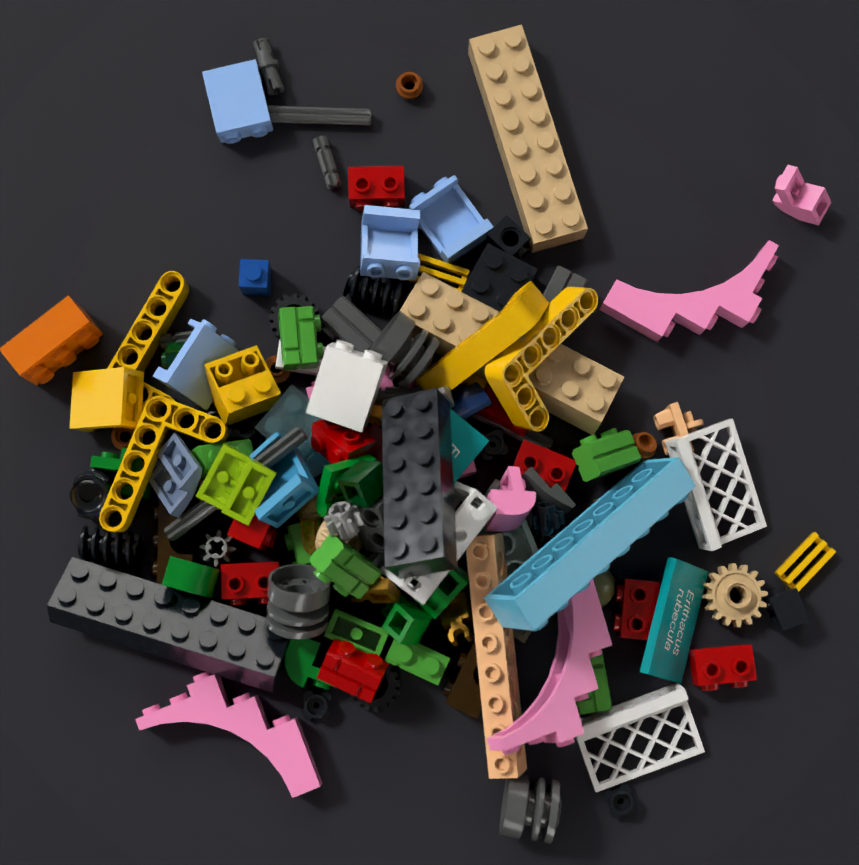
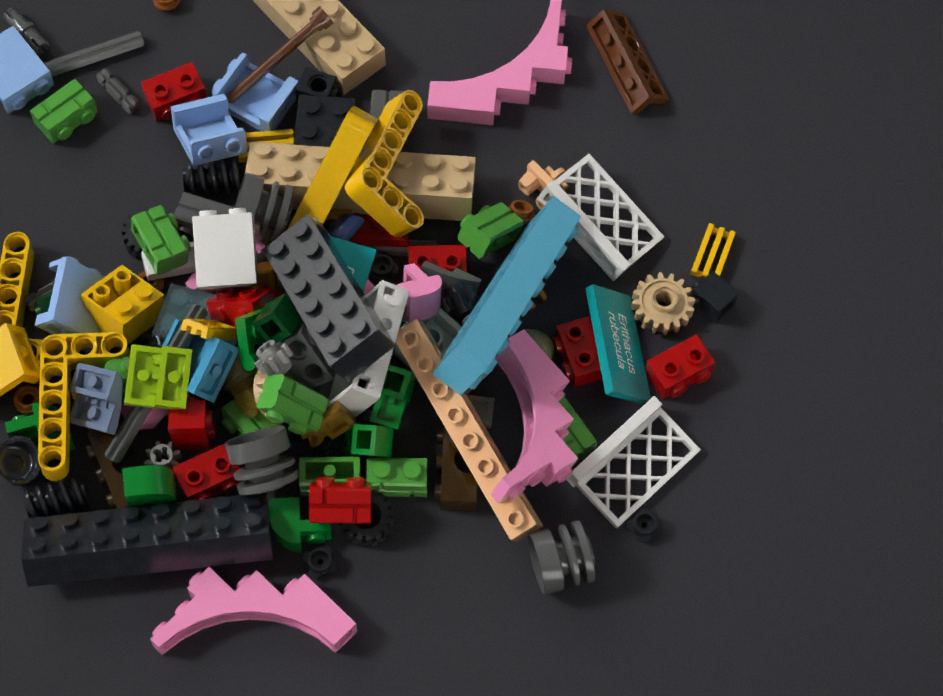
camera: 25 degrees left, 15 degrees down
(255, 277) = (94, 210): blue brick -> none
(269, 165) = (64, 111): none -> bright green brick
(302, 463) = (209, 328): none -> yellow tile
(456, 616) = (417, 425): pearl gold plate -> none
(536, 177) = (317, 22): none -> reddish brown piece
(810, 332) = (625, 61): none -> reddish brown fence

